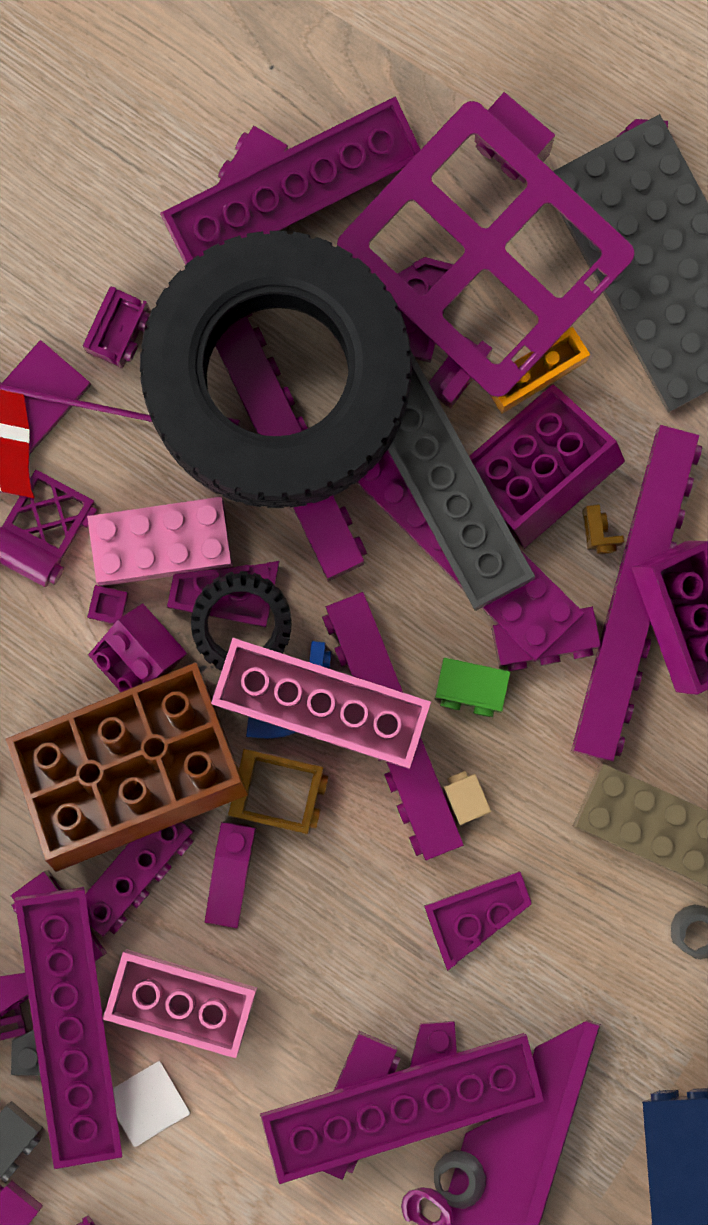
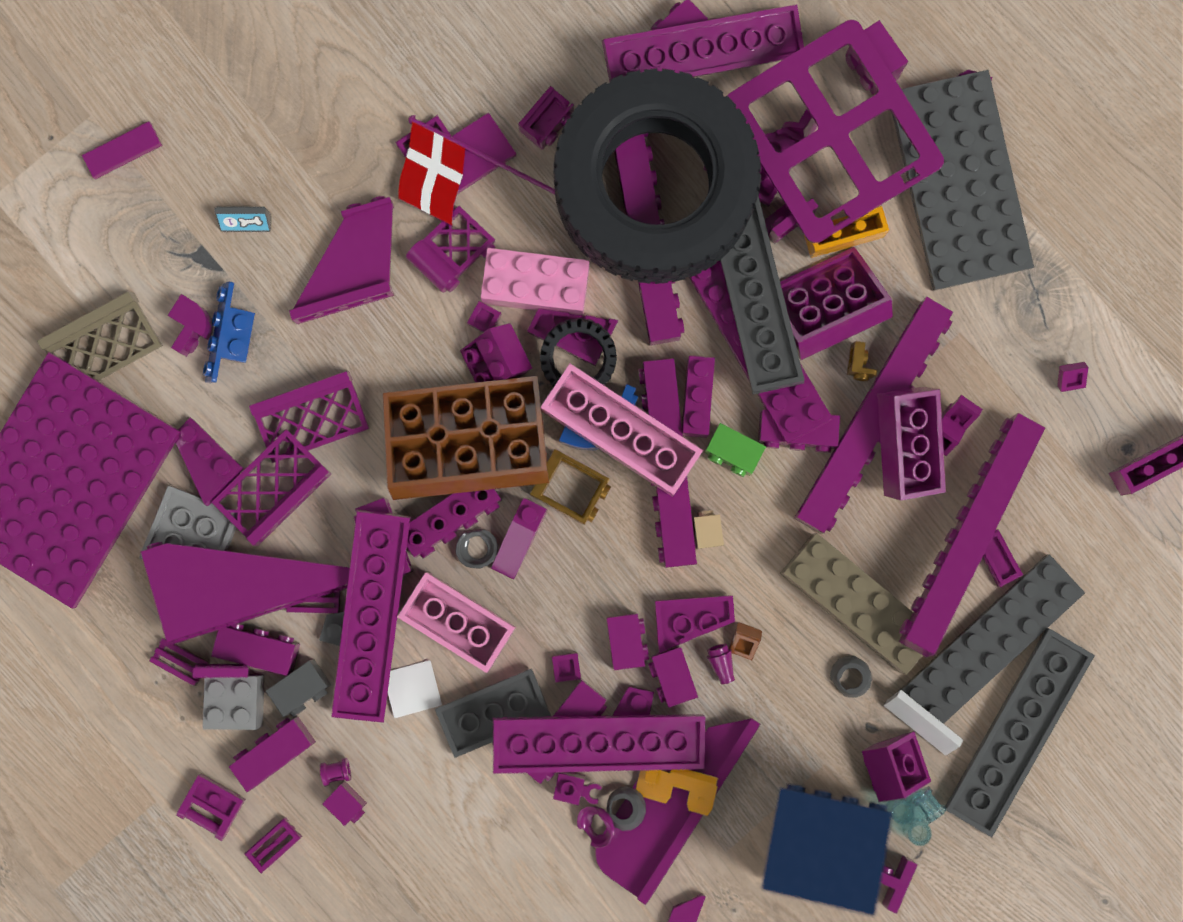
camera: 15 degrees right, 0 degrees up
(172, 920) = (466, 559): none -> dark grey piece
(231, 1121) = (470, 719): none -> dark grey plate
(335, 1021) = (566, 667): none -> magenta tile
(383, 1173) = (571, 787): none -> magenta brick
(402, 968) = (626, 641): none -> magenta brick
(407, 631) = (698, 396): none -> magenta brick
(447, 251) = (804, 127): none -> magenta tile
(473, 995) = (673, 677): none -> magenta brick
(493, 1136) = (659, 784): none -> light orange piece
(529, 960) = (721, 661): none -> magenta cone
(552, 924) = (745, 641): none -> dark orange slope

